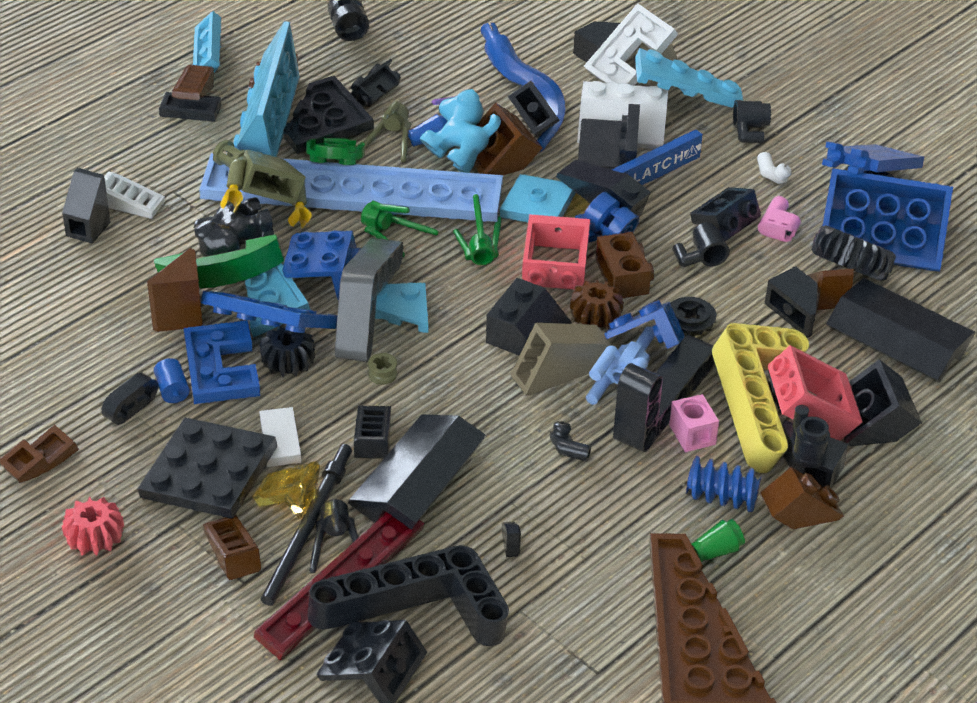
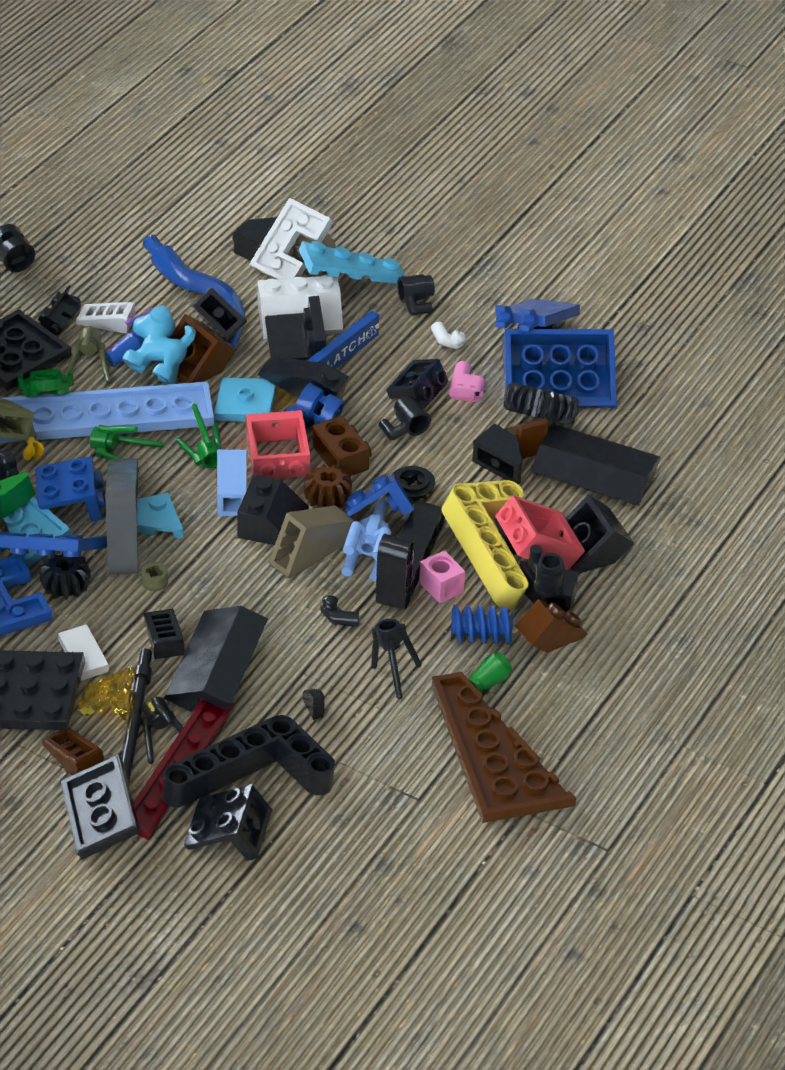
camera: 15 degrees left, 0 degrees up
(236, 613) = (100, 807): none -> tile
(420, 95) = (107, 316): none -> white slope
(491, 278) = (231, 480): none -> light blue slope
(610, 477) = (389, 635): none -> black plant

